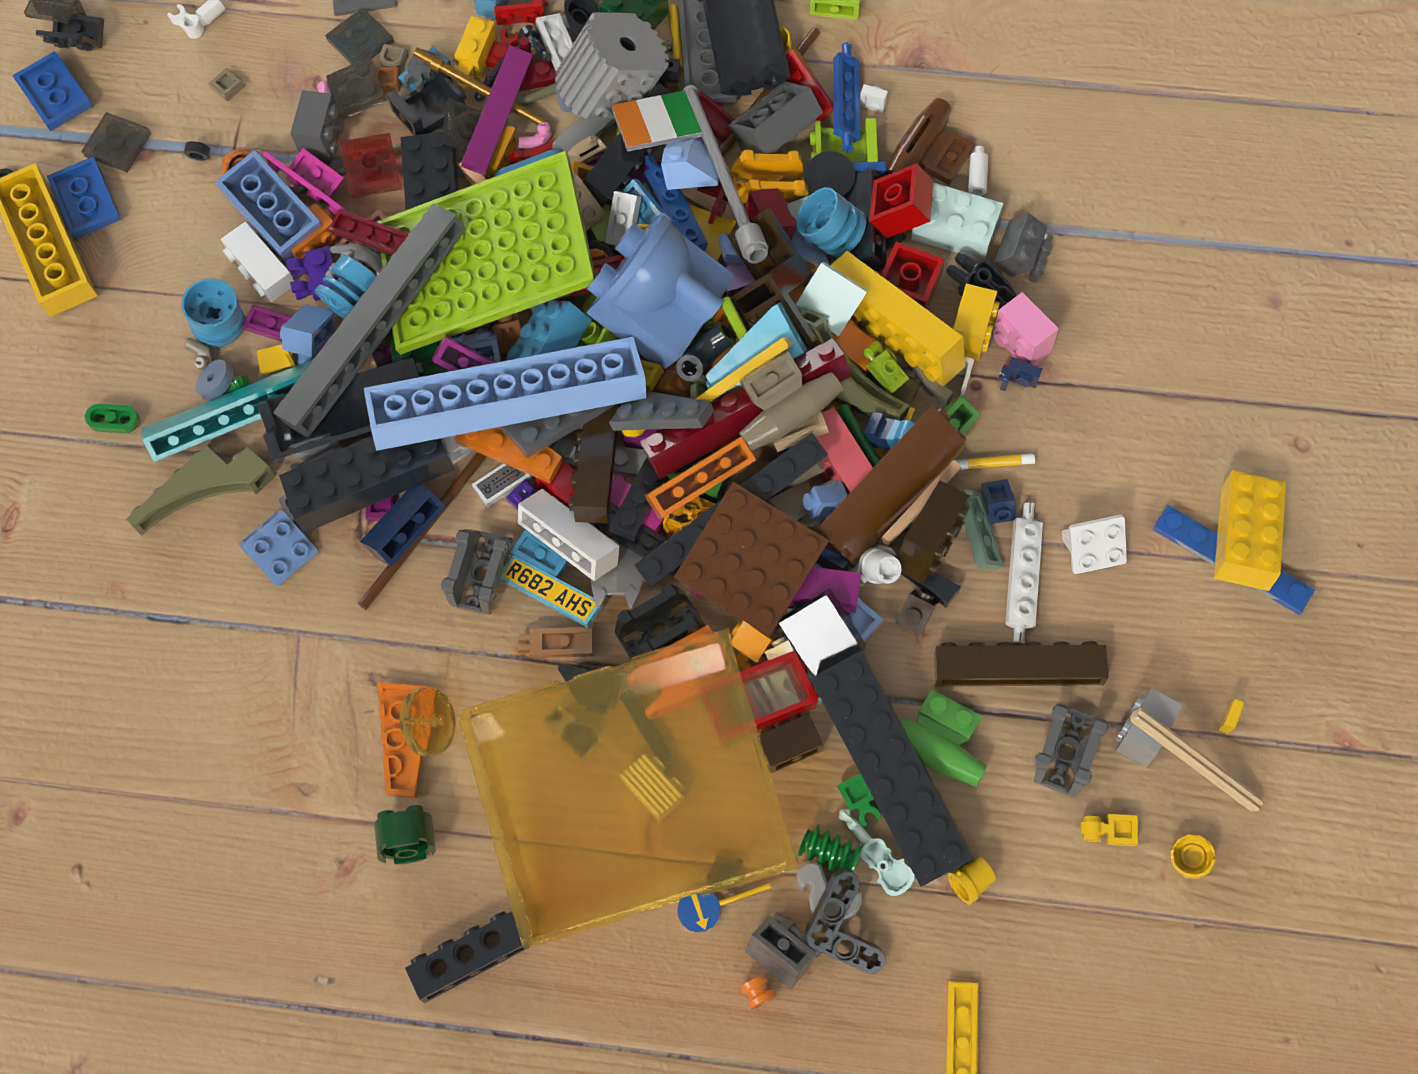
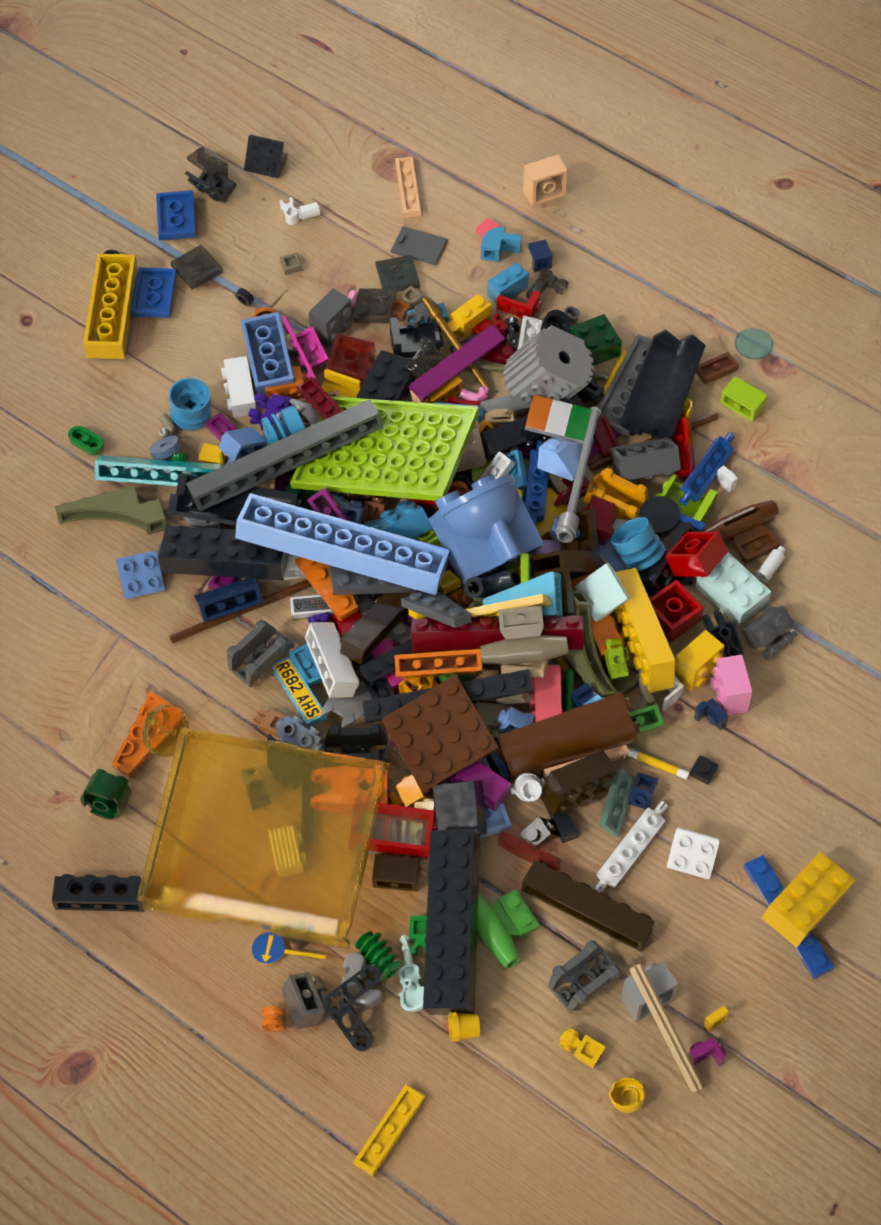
camera: 25 degrees right, 10 degrees down
(386, 199) = (346, 385): none -> yellow panel
(598, 646) = (300, 735): none -> sand blue brick
(919, 639) = (527, 850): none -> clear red tile
(1047, 442) = (704, 770): none -> black plate
(1247, 752) = (701, 1051): none -> magenta bracket

